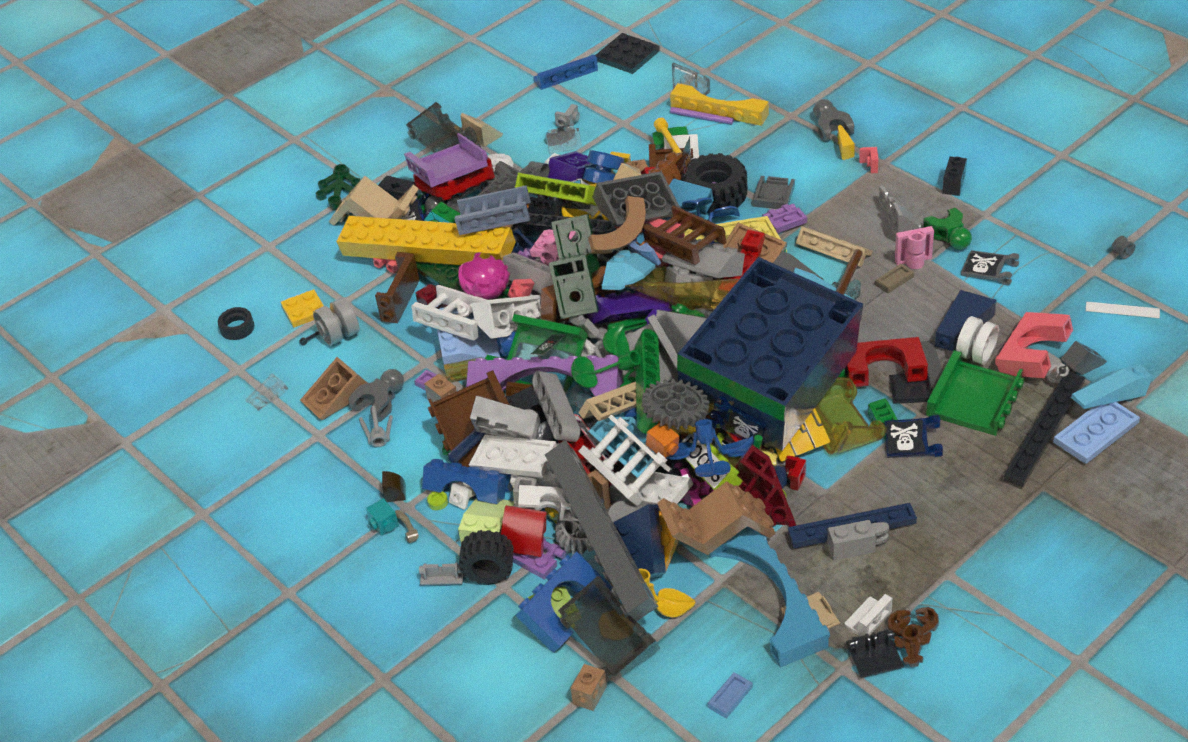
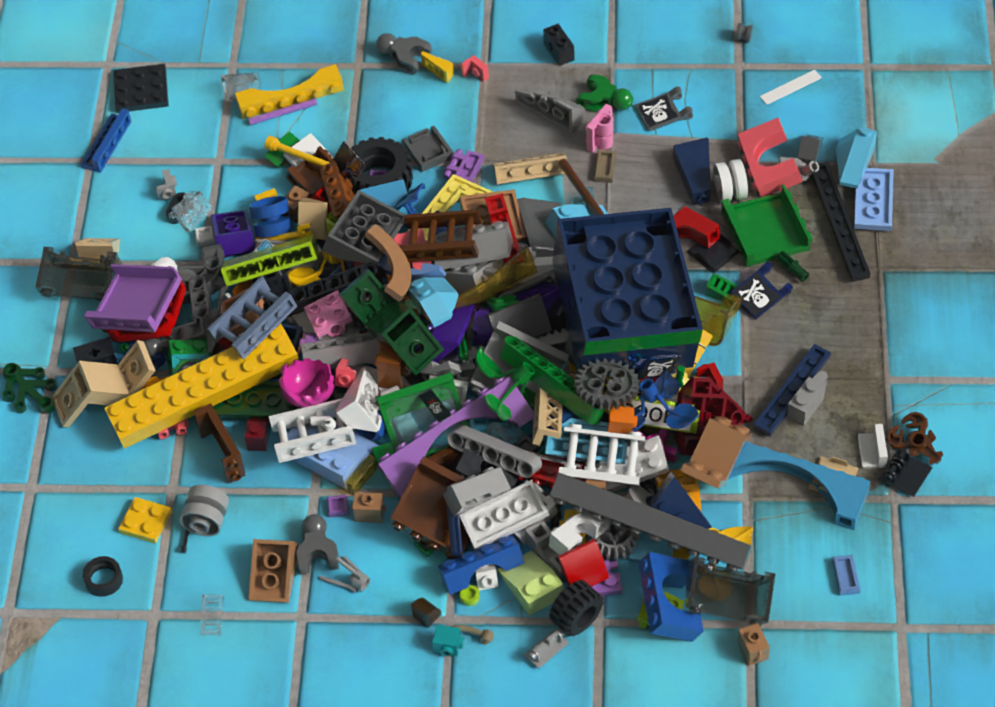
camera: 45 degrees left, 10 degrees up
(963, 437) = (792, 266): none -> dark green axle

